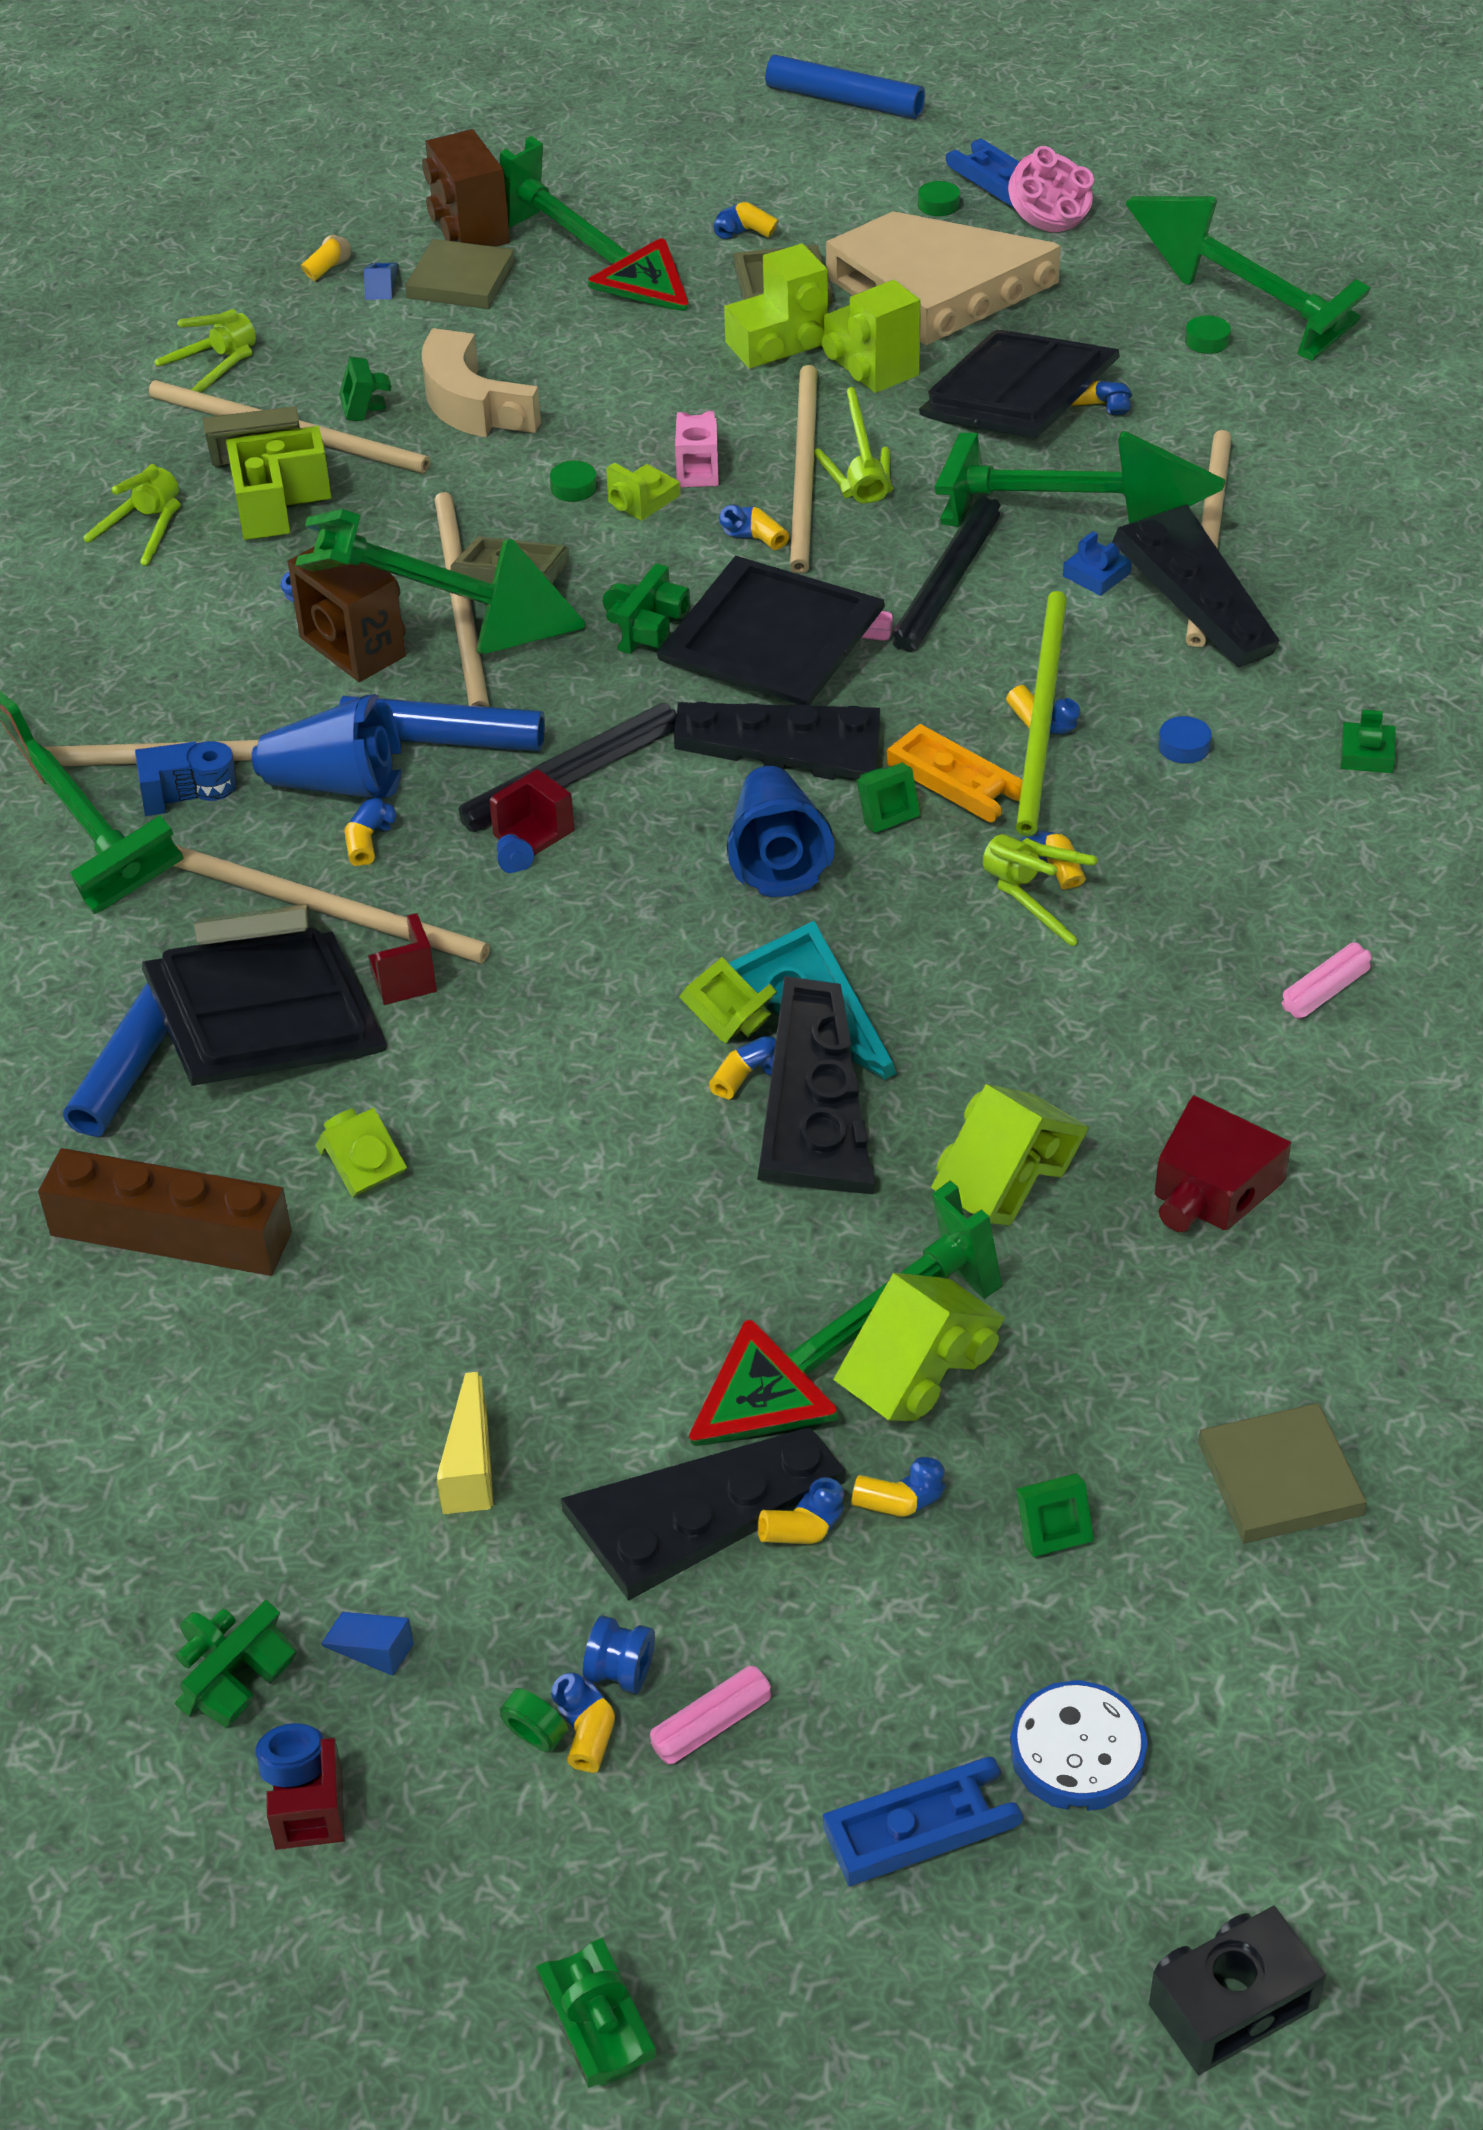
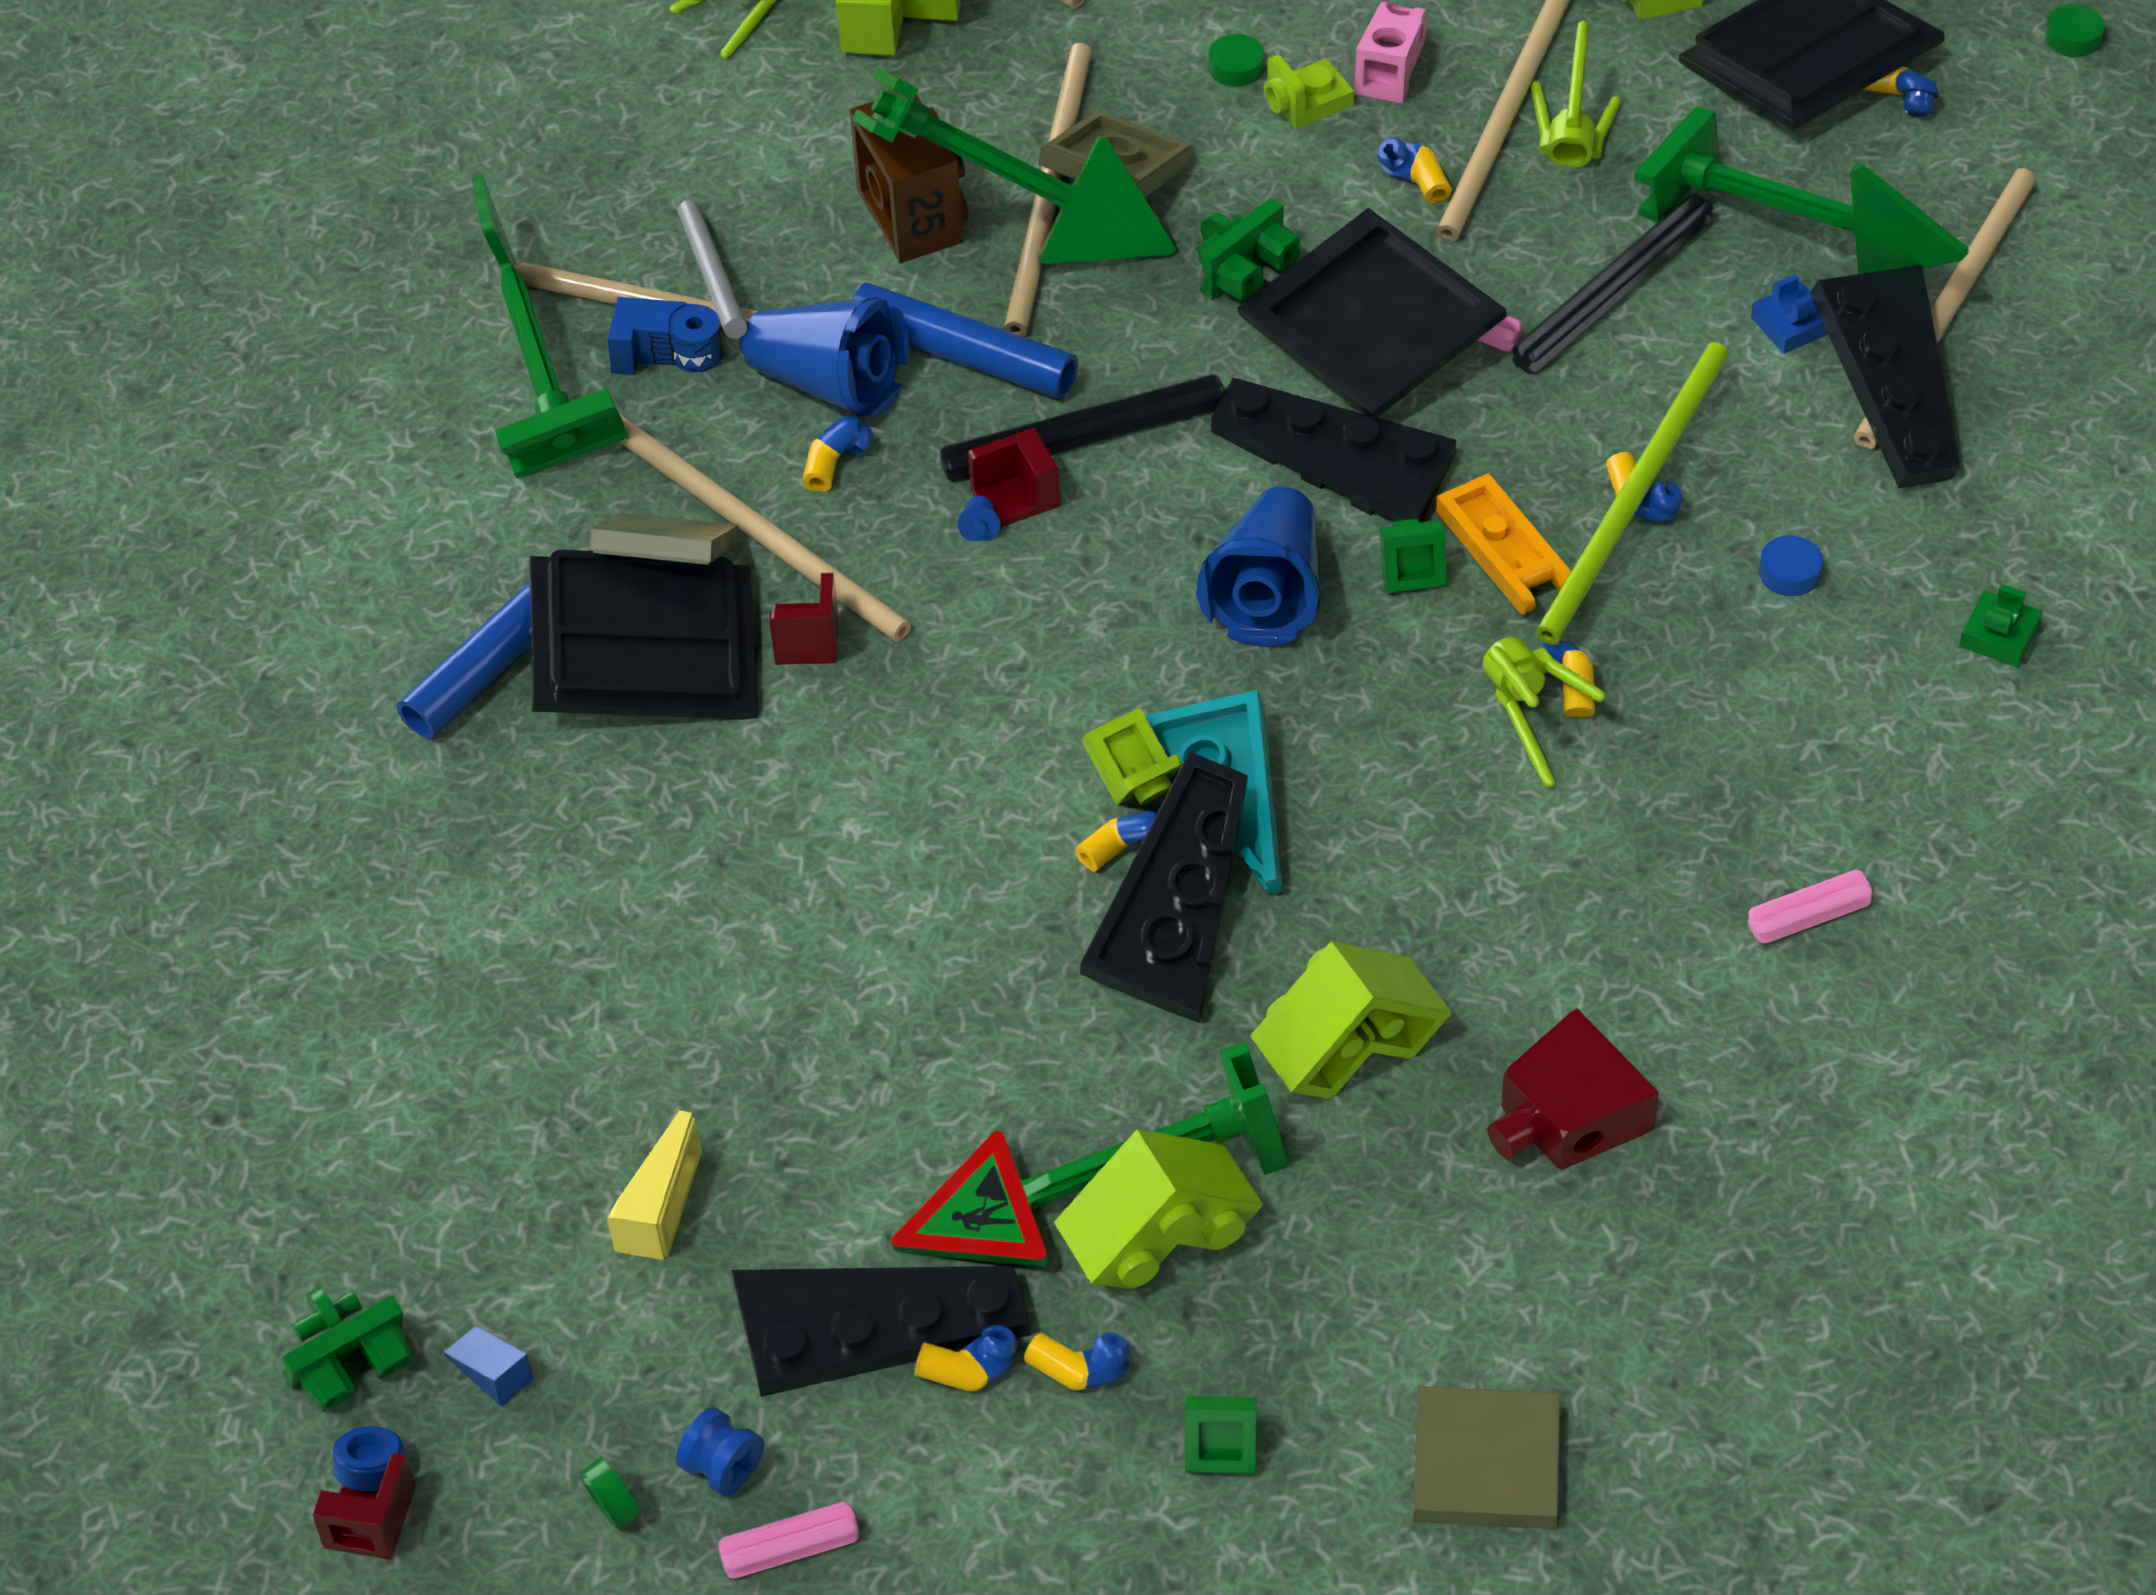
camera: 20 degrees right, 5 degrees up
(165, 1211) = (457, 846): reddish brown brick -> none
(206, 715) = (712, 269): none -> light grey bar
(360, 1150) = (680, 829): lime bracket -> none
(589, 1717) = (669, 1505): arm -> none

